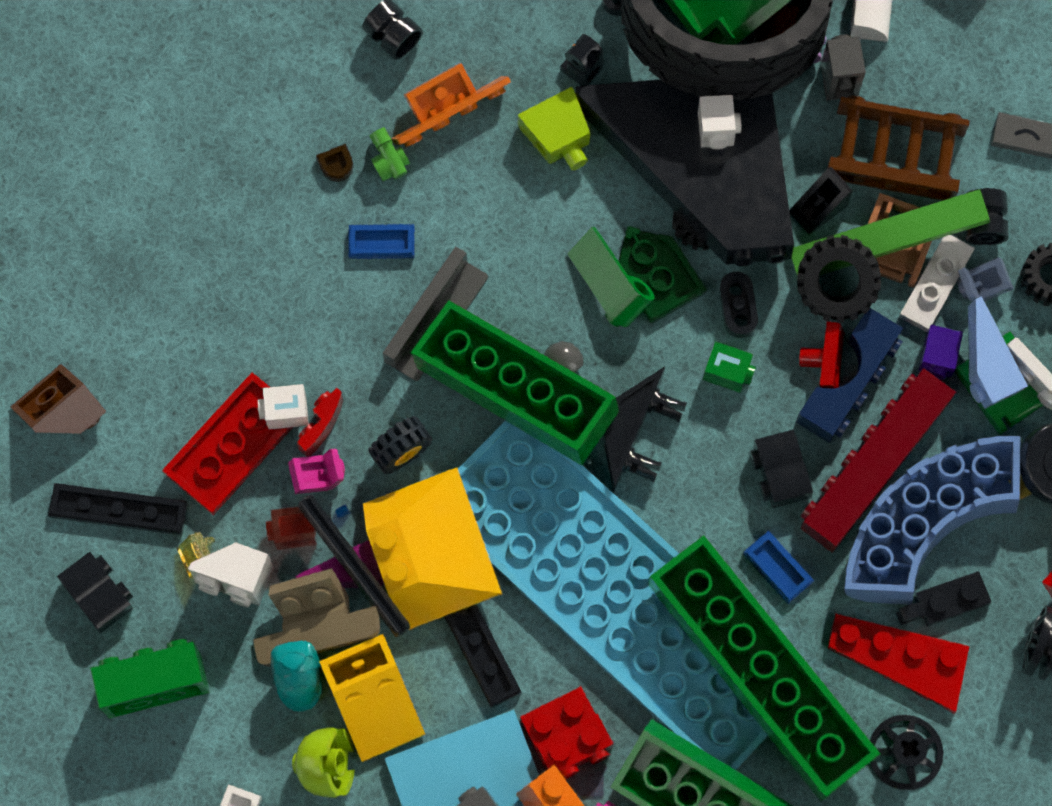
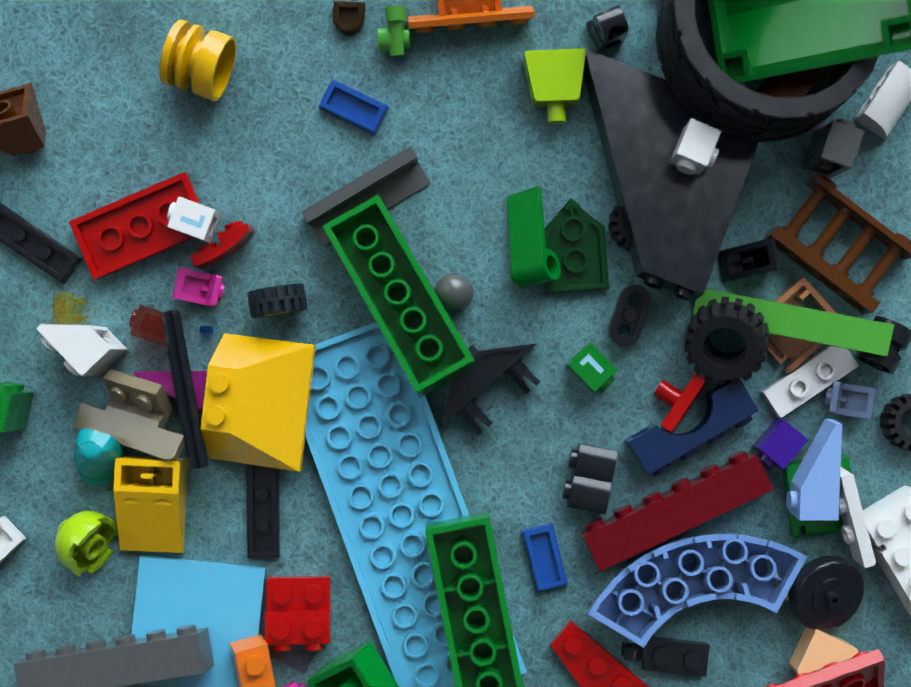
camera: 20 degrees right, 15 degrees up
(217, 263) = (197, 60): none -> yellow wheel

